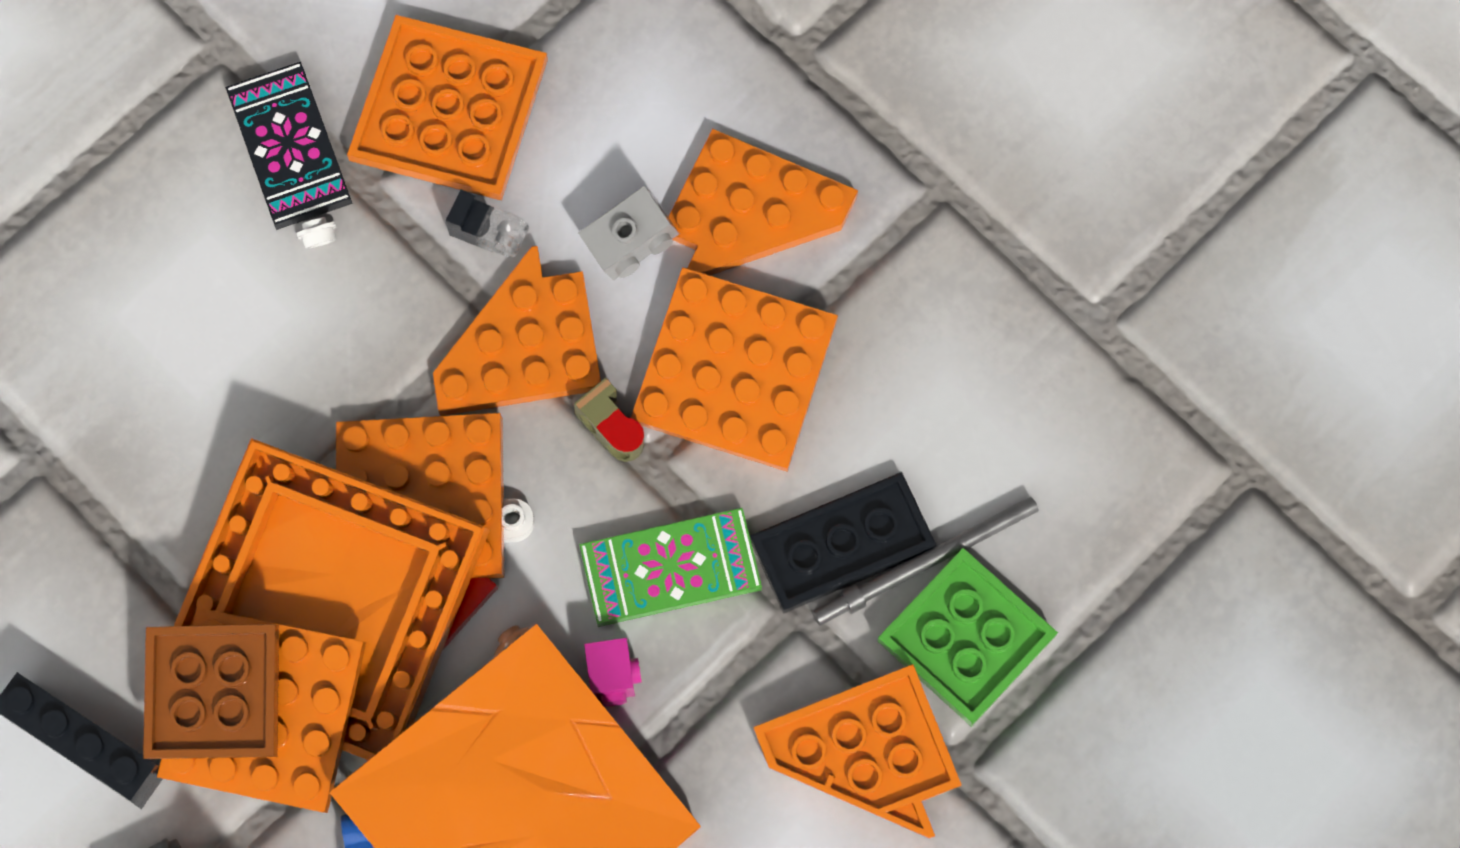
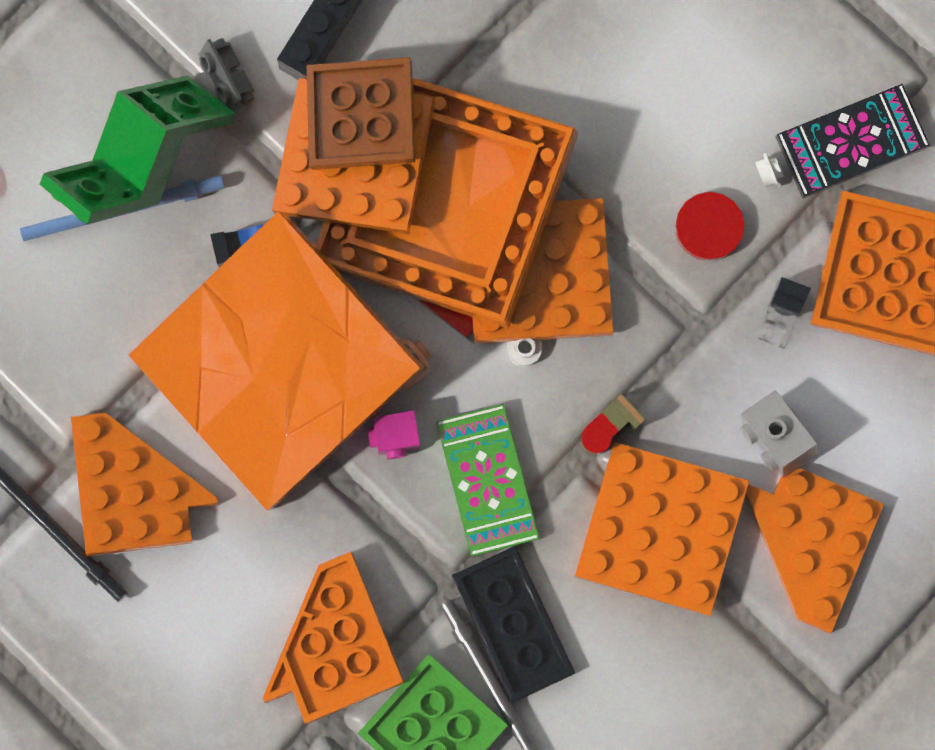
camera: 85 degrees right, 10 degrees up
(378, 304) = (709, 226): none -> red tile
(523, 344) = (678, 350): orange wing -> none

